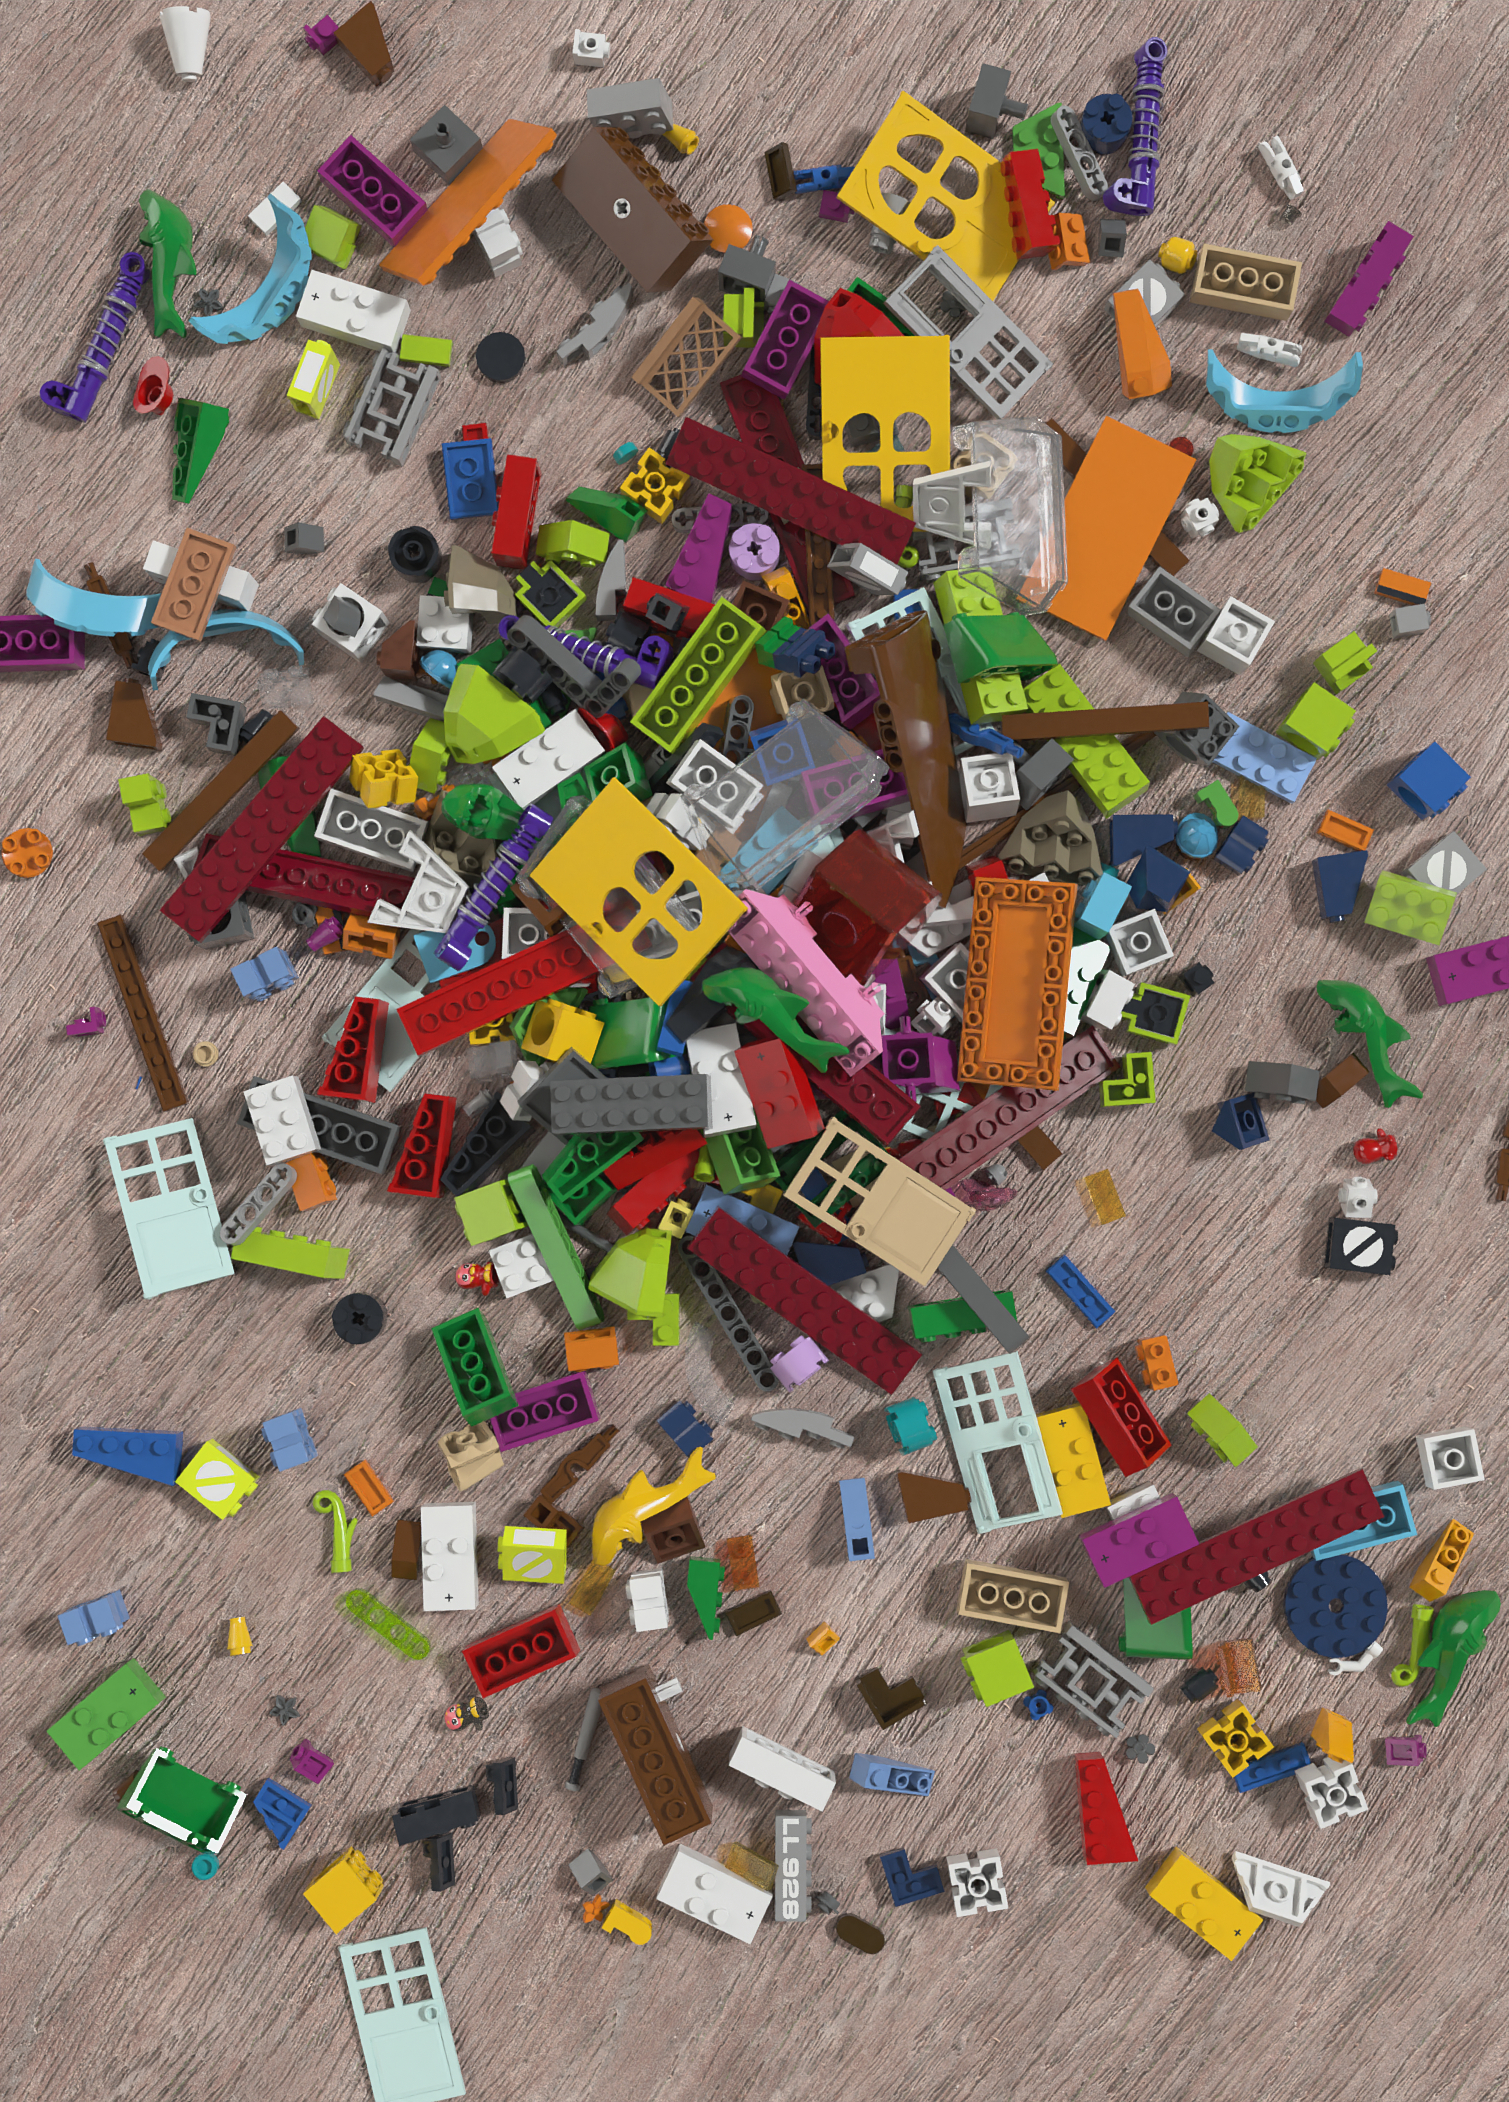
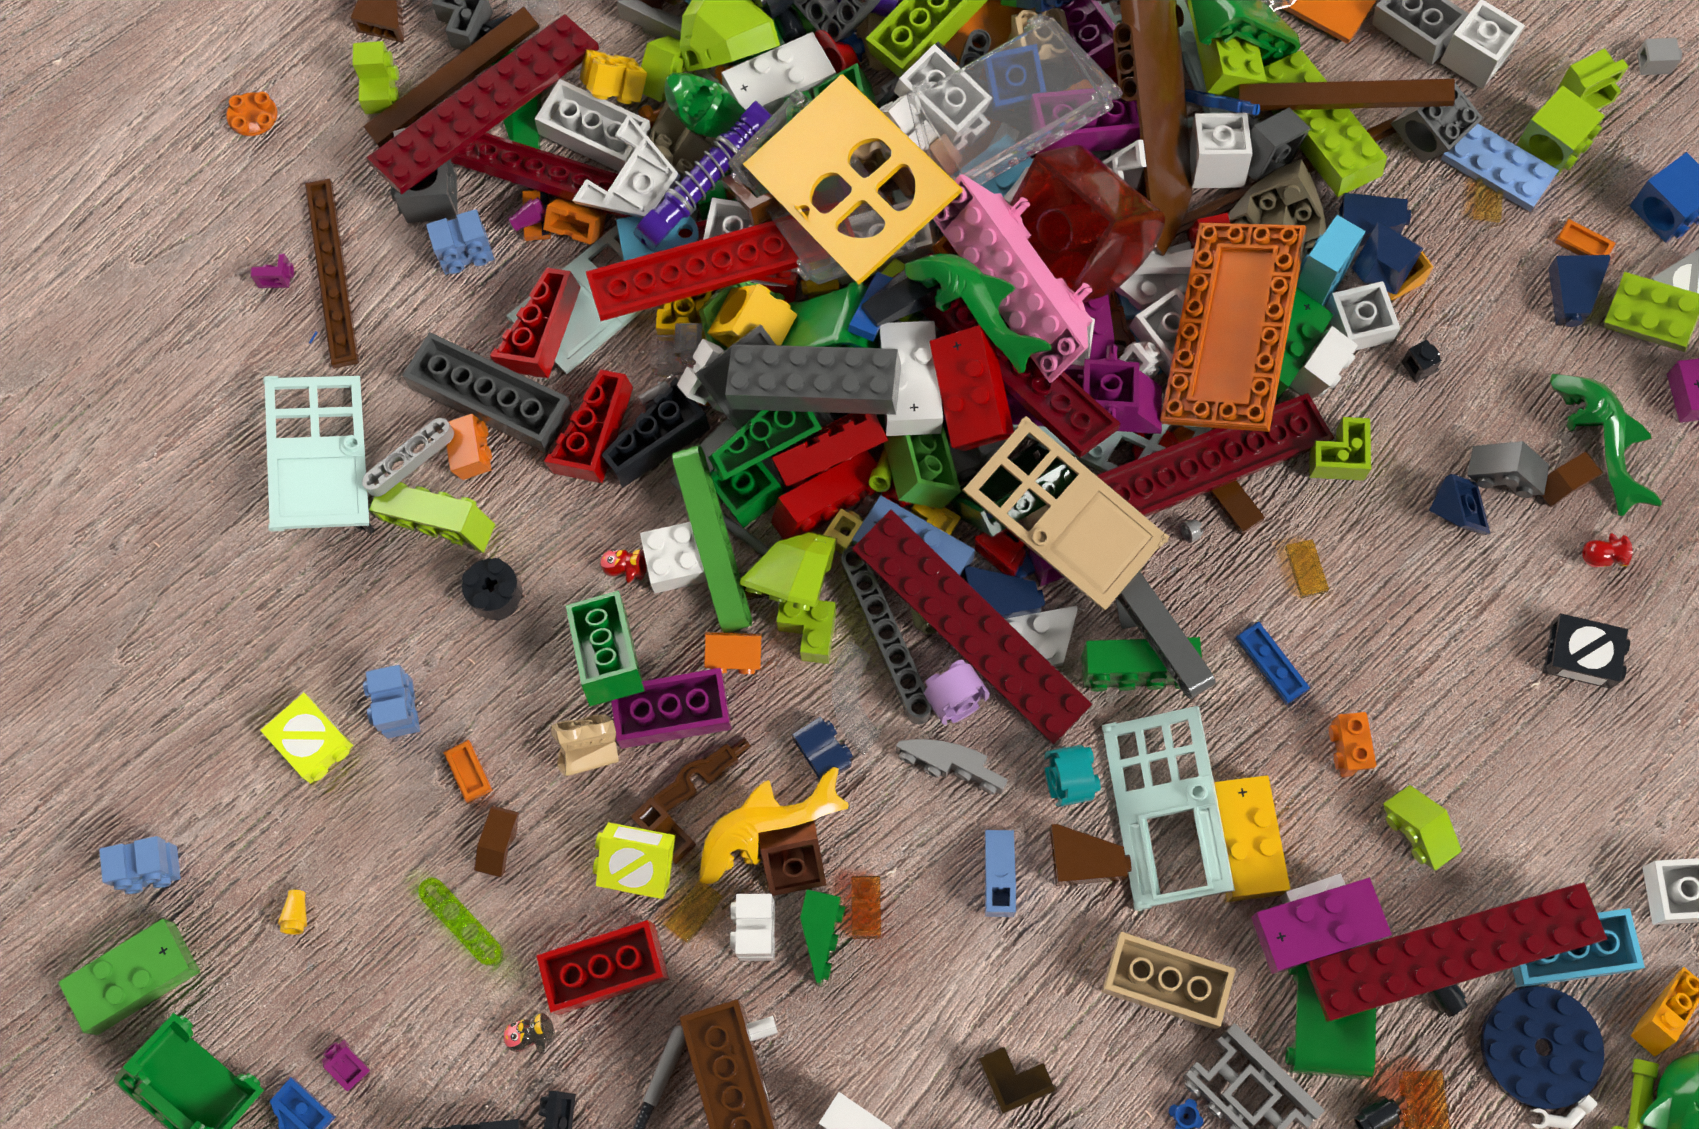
camera: 10 degrees right, 15 degrees down
(136, 1451) = (231, 696): blue wedge -> none
(205, 1053) = (386, 316): tan plate -> none
(282, 1120) = (449, 372): white brick -> none
(285, 1709) = (328, 1002): dark grey plant -> none
(299, 914) = (512, 197): dark grey plate -> none
(341, 1533) = (429, 817): lime plant -> none
(449, 1556) = (541, 853): white brick -> none
(490, 1212) = (649, 493): lime brick -> none
(753, 1613) = (870, 965): dark brown tile -> none
(822, 1638) = (946, 1006): light orange slope -> none
(985, 1196) = (1183, 546): clear pink piece -> none
(996, 1668) = (1142, 1060): lime brick -> none
(1121, 1417) = (1308, 794): red brick -> none
(1156, 1013) = (1374, 388): piece -> none
(1196, 837) = (1429, 229): dark azure piece -> none
(1219, 803) = (1453, 199): bright green leg -> none
(1241, 845) = (1475, 240): dark blue brick -> none
(1357, 1197) = (1586, 597): white brick -> none
(1402, 587) = (1647, 26): orange tile -> none

